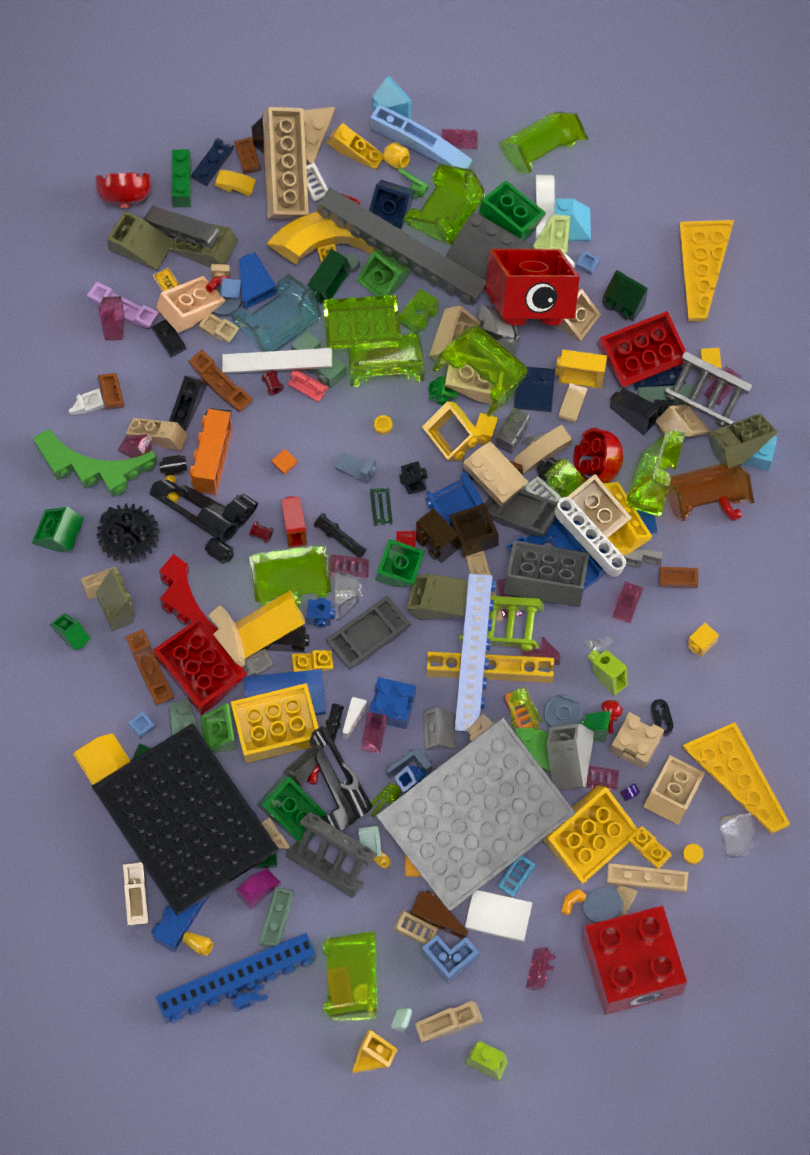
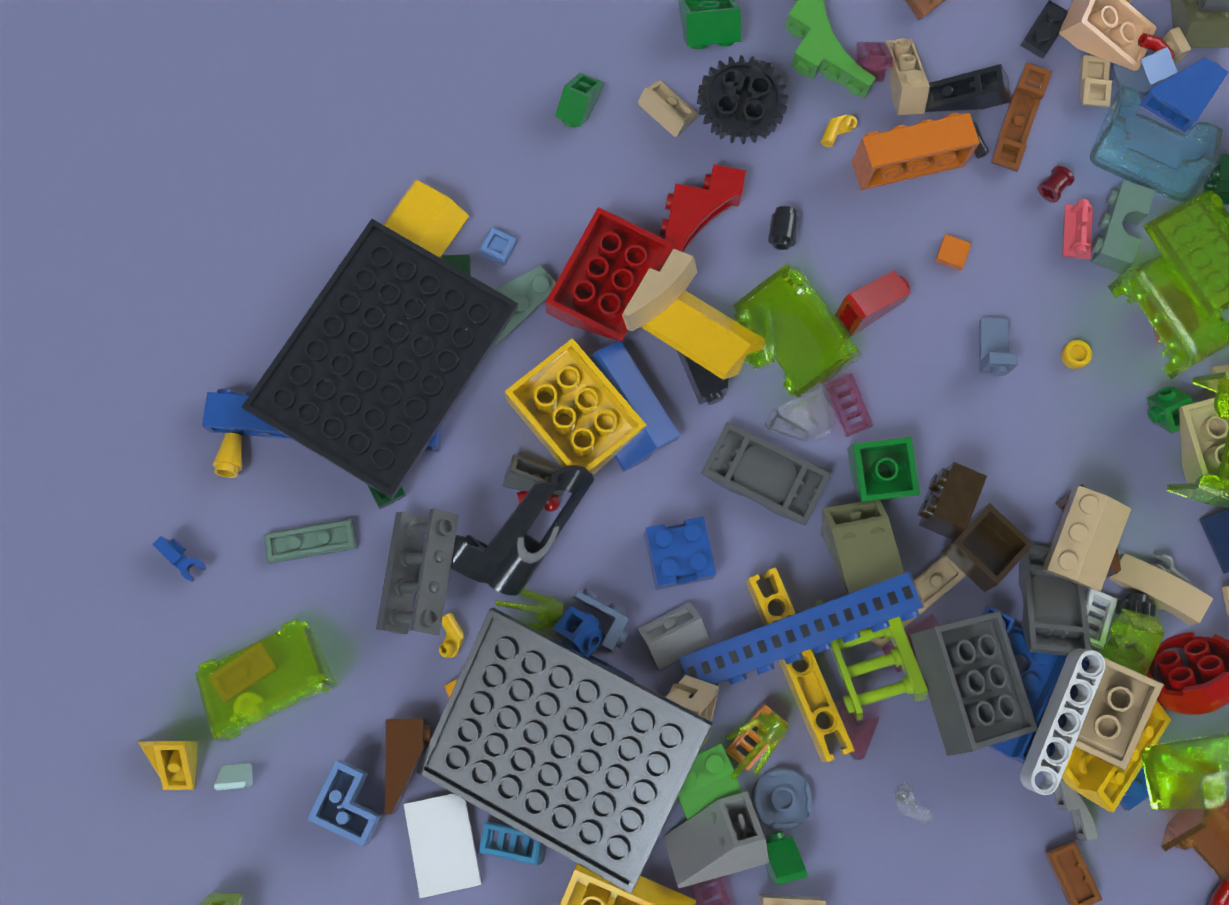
camera: 60 degrees right, 10 degrees up
(115, 601) = (643, 132): olive slope -> none
(135, 893) = (259, 346): tan slope -> none
(149, 667) = (565, 235): dark orange slope -> none
(173, 465) = (871, 114): black brick -> none
(214, 517) = (826, 200): black panel -> none
(218, 729) = (532, 344): bright green slope -> none
(236, 978) = (201, 528): blue brick -> none
(257, 888) = (338, 496): magenta slope -> none
(258, 663) = (649, 349): light grey slope -> none
(261, 532) = (837, 268): dark red bush -> none
(274, 834) = (421, 480): tan slope -> none
(277, 360) = (1091, 174): white tile -> none
(288, 805) = (468, 486): green slope -> none
(312, 661) = (688, 420): yellow slope -> none
(320, 612) = (760, 395): blue brick -> none
(331, 531) = (892, 360): black pin -> none
(333, 722) = (614, 488): black pin -> none
(355, 712) = (638, 509): white slope -> none
(370, 838) = (465, 616): light aqua panel -> none
(374, 732) = (624, 548): clear pink slope -> none
(382, 521) = (938, 419): clear green tile -> none
(406, 537) = (927, 462): red tile -> none
(413, 477) = (1021, 429): black brick -> none
(418, 922) = (362, 722): tan slope -> none
(439, 419) = (1125, 424): yellow window -> none
(449, 1021) = (257, 846): tan slope -> none
(454, 497) = (1020, 499): blue panel -> none
(486, 427) = (1146, 494): yellow brick -> none
(512, 430) = (1166, 533): flat silver brick -> none
(609, 671) = (875, 849): lime torso -> none
(616, 711) = (820, 869): red piece -> none
(627, 602) = (996, 817): clear pink slope -> none

